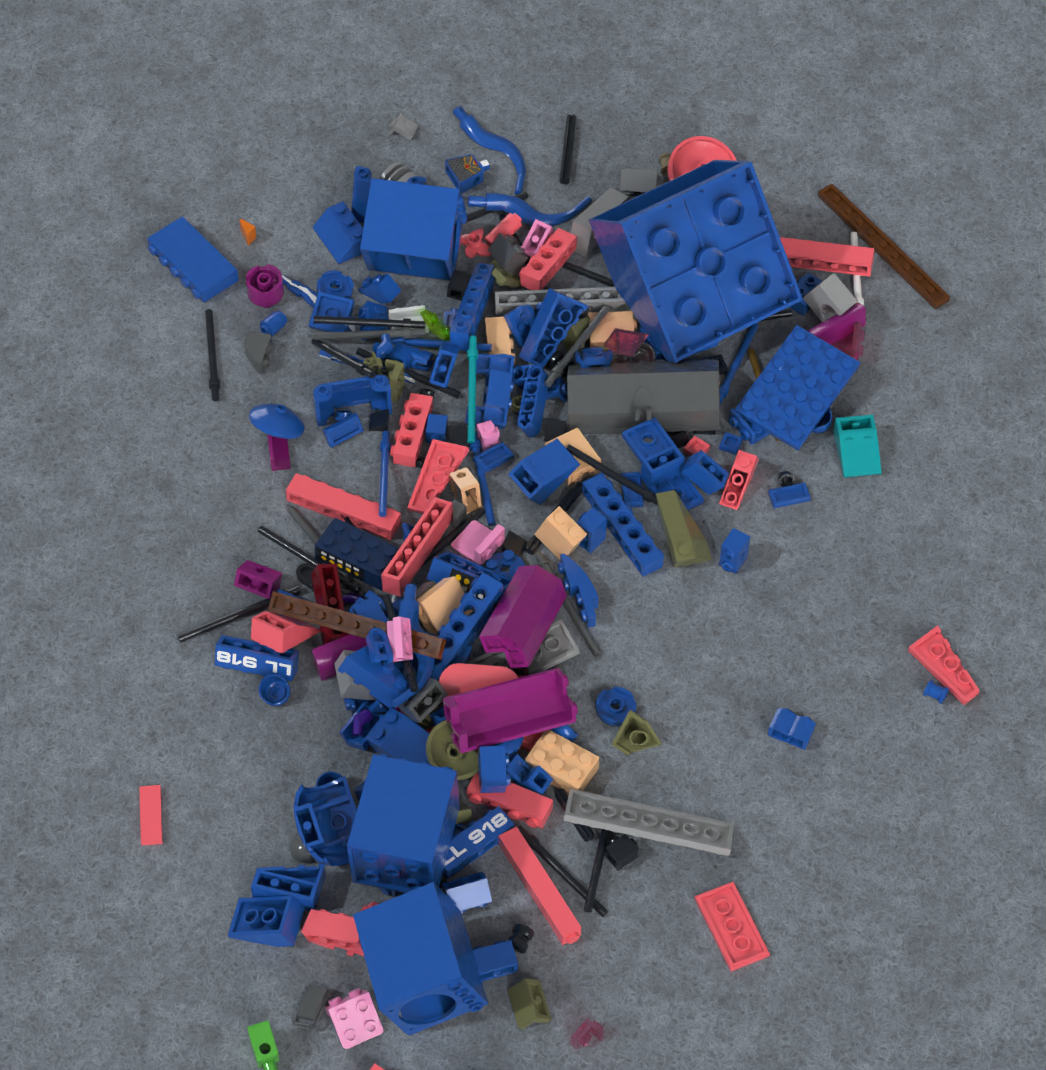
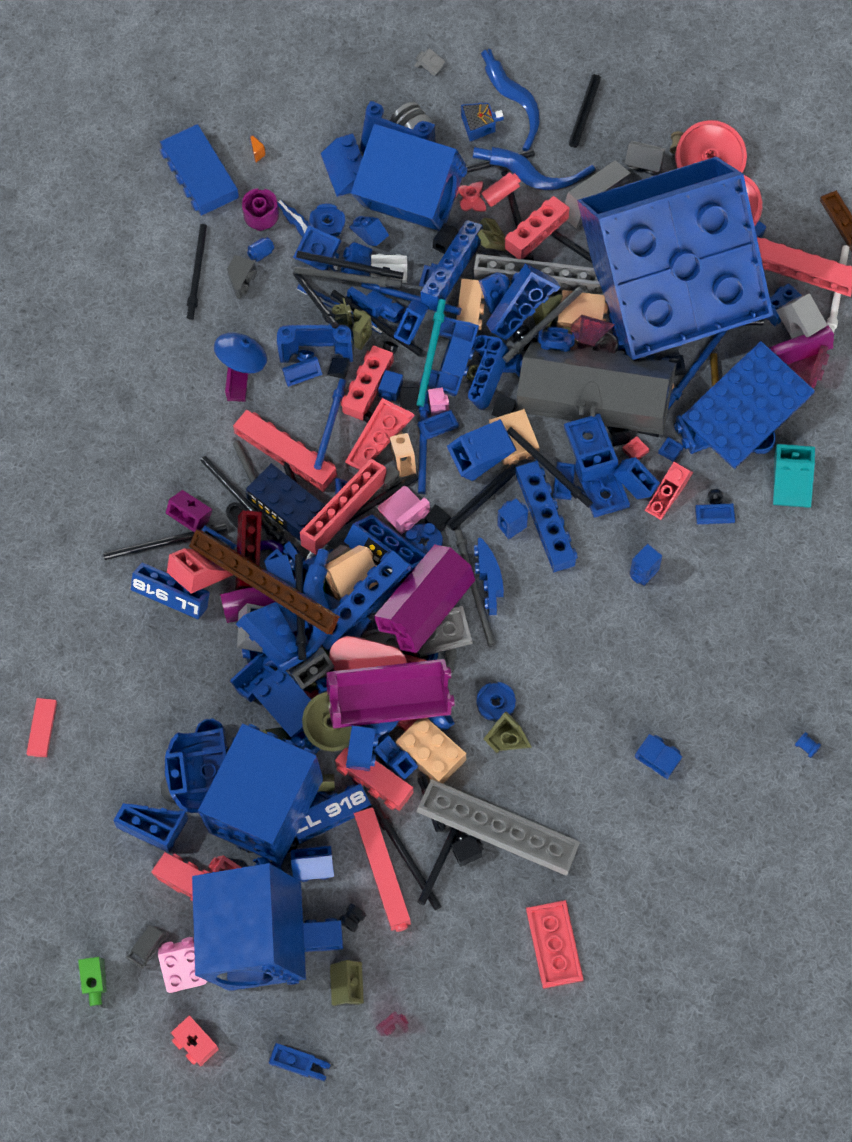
camera: 15 degrees right, 10 degrees up
(267, 920) = (124, 853): blue slope -> none
(274, 686) = (179, 621): blue hair -> none
(359, 720) = (251, 672): dark purple arm -> none
(376, 640) = (276, 602): blue plate -> none
(385, 347) = (359, 294): blue arm -> none
(400, 638) = (297, 607): bright pink panel -> none
(439, 329) = (410, 275): clear neon green slope -> none
(508, 253) = (499, 214): dark grey brick -> none
(536, 237) = (530, 202): bright pink slope -> none
(560, 533) = (481, 518): light nougat brick -> none
(682, 534) = (601, 539): olive wedge -> none
(944, 665) = (821, 715): coral wing -> none

